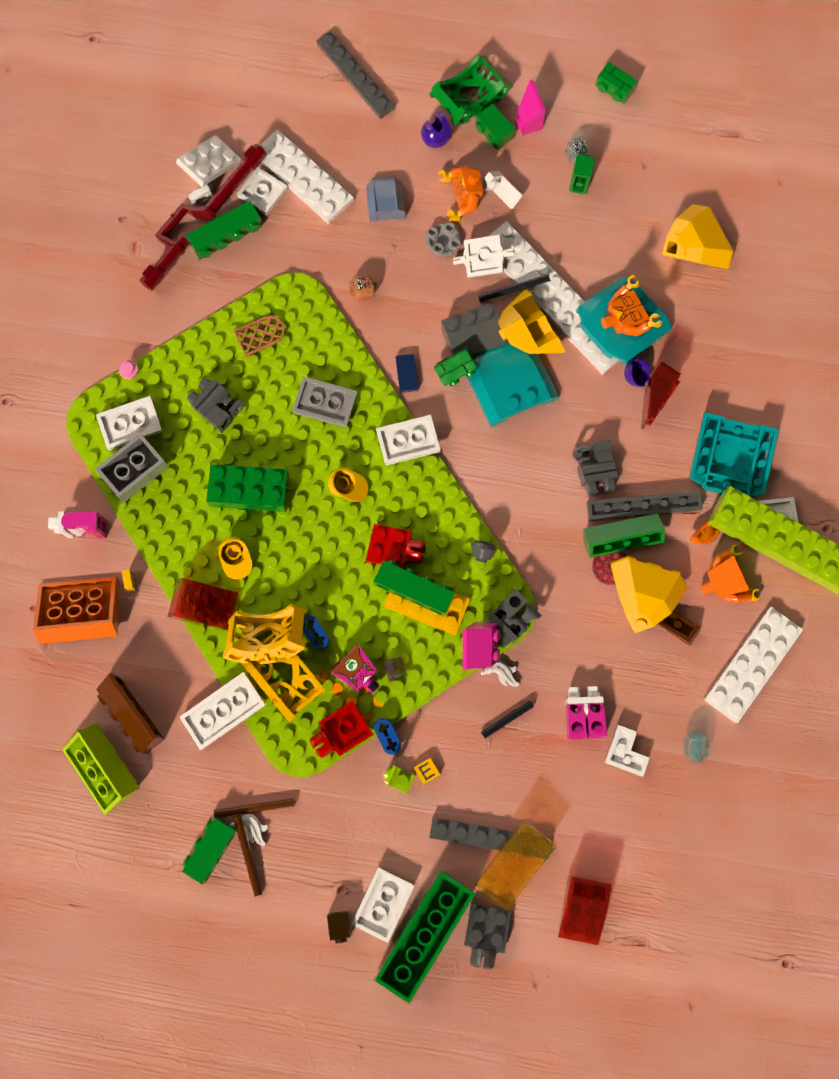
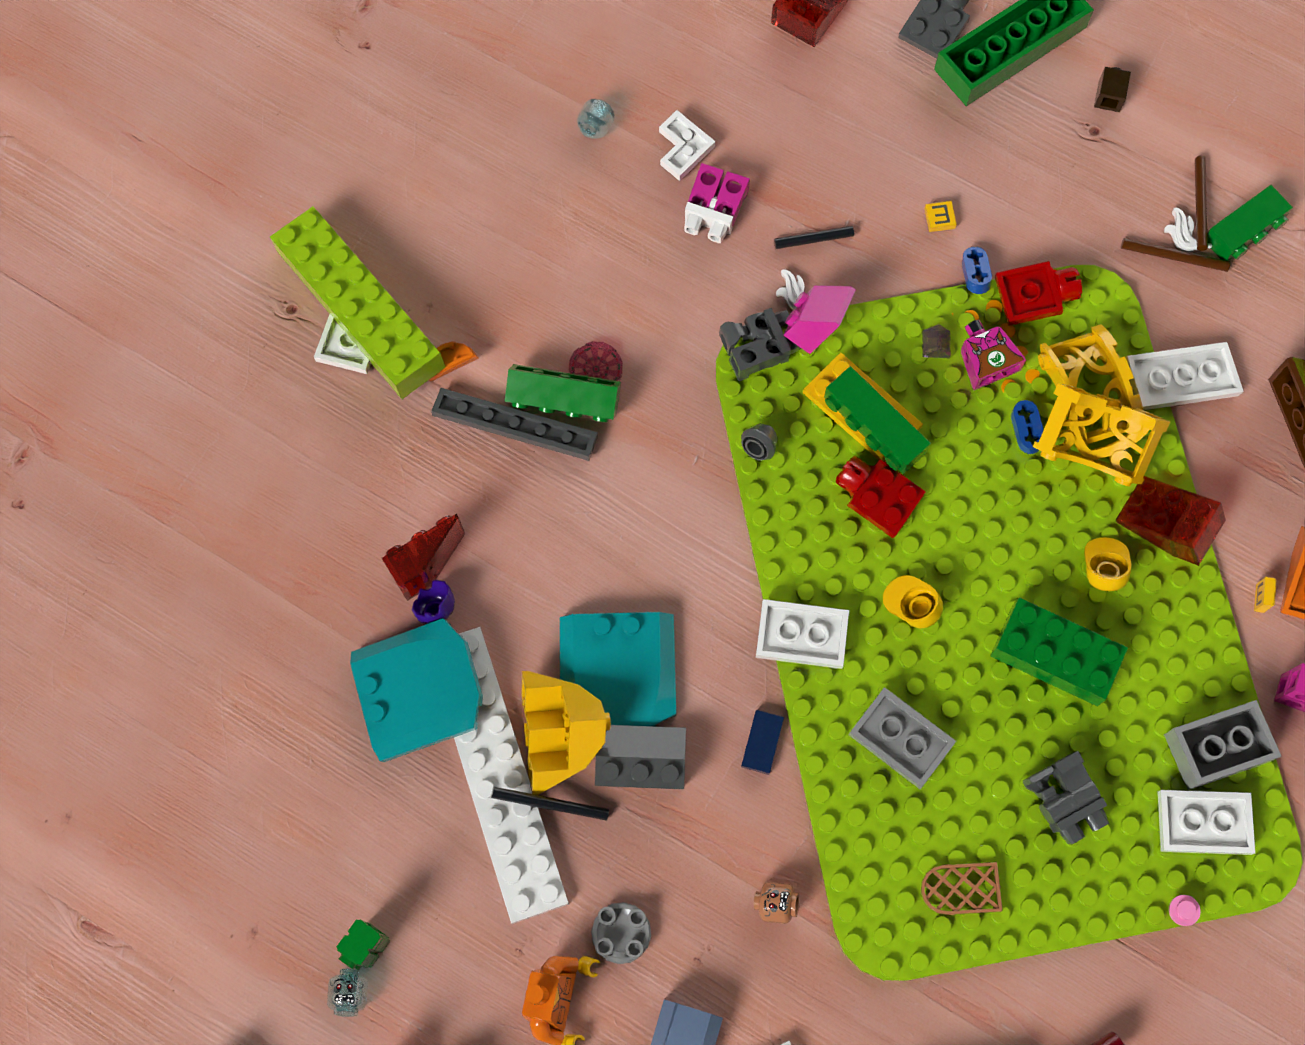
camera: 155 degrees left, 5 degrees down
(383, 905) = (1050, 93): white plate -> none
(399, 779) = (979, 219): lime bracket -> none
(456, 366) = (690, 712): green brick -> none
(469, 834) = (891, 117): dark grey plate -> none
(484, 256) = (573, 872): white plate -> none
(502, 188) = (491, 979): white bracket -> none
(515, 865) = (875, 71): clear yellow plate -> none
(601, 471) = (552, 488): dark grey hips -> none
(627, 313) = (410, 678): orange torso -> none
(646, 591) = (570, 305): yellow brick -> none
(680, 627) = (545, 263): reddish brown slope -> none
(698, 238) = (243, 764): yellow brick -> none
(728, 579) = (454, 288): orange torso -> none
(733, 455) = (363, 440): teal wedge -> none
(753, 664) = (475, 185): white plate -> none

